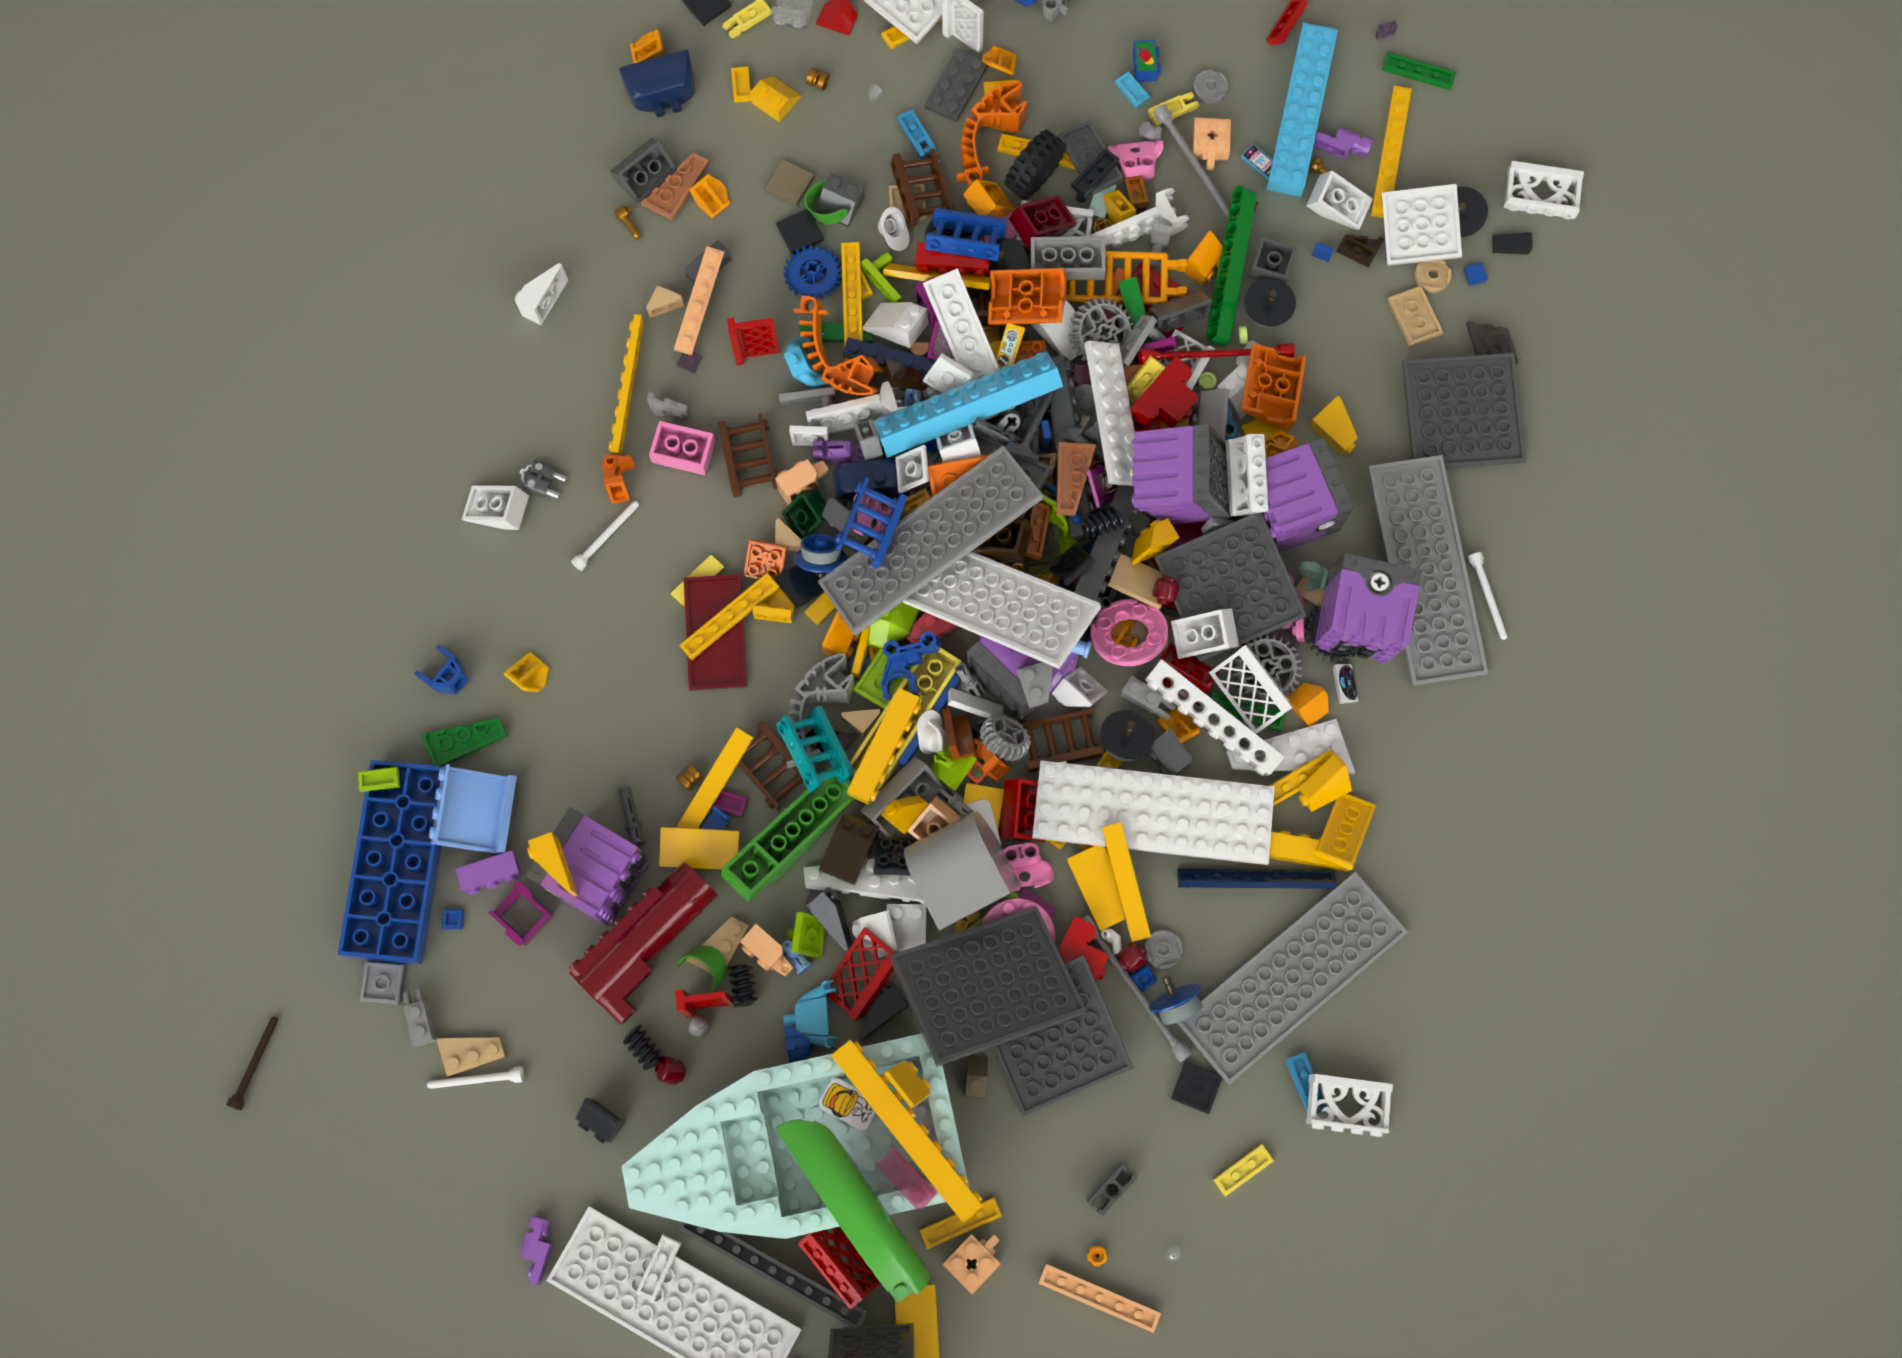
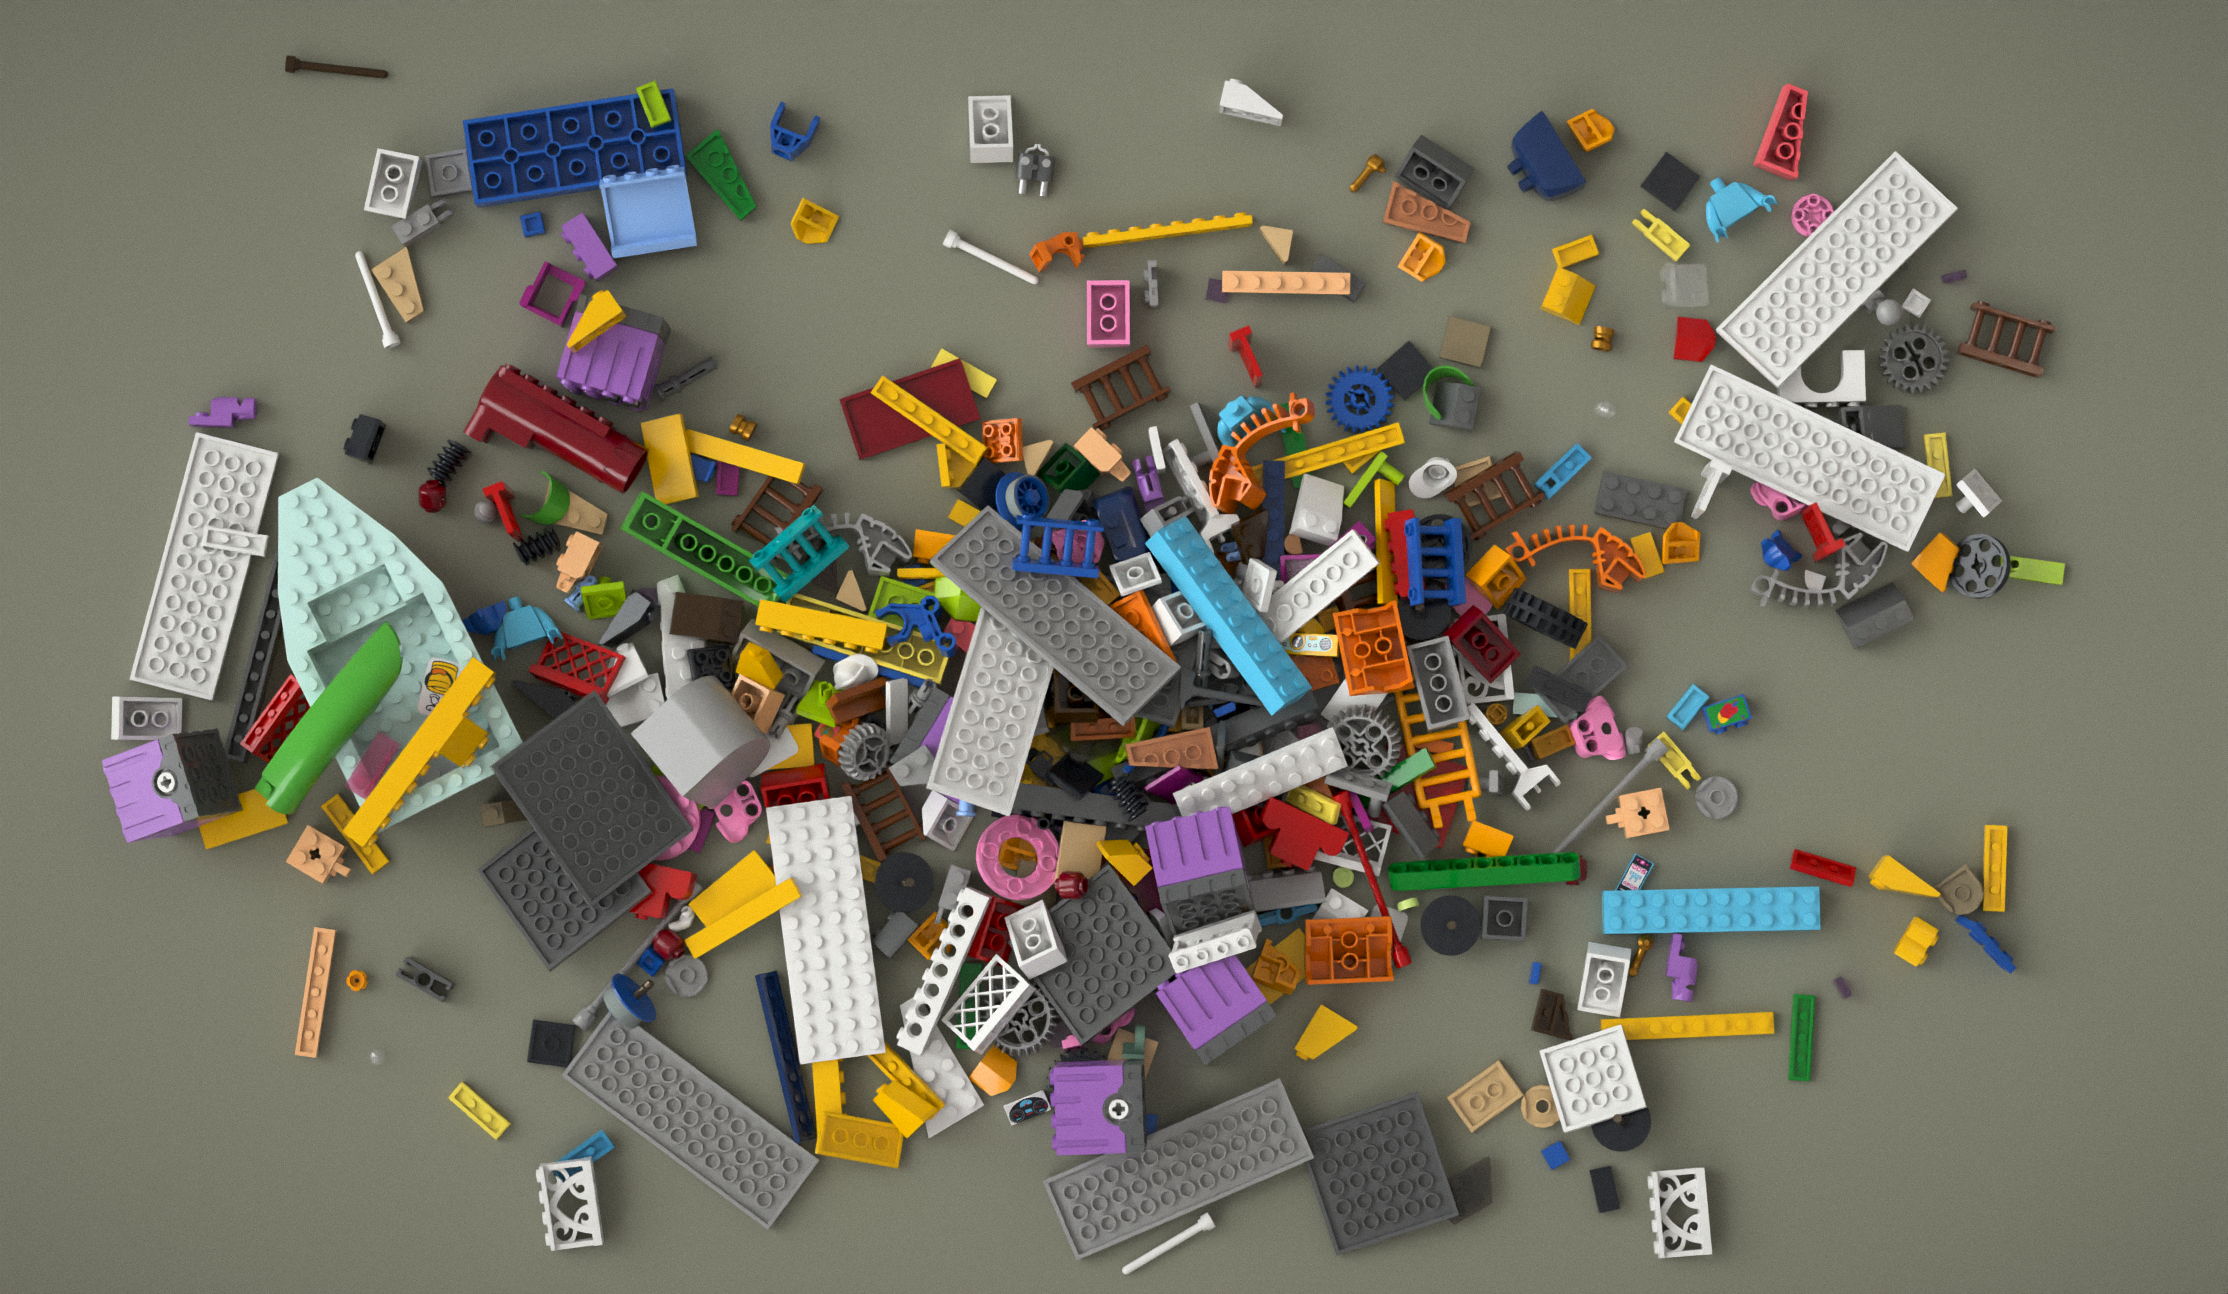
camera: 80 degrees right, 10 degrees up
(373, 1033) = (393, 183): none -> white slope

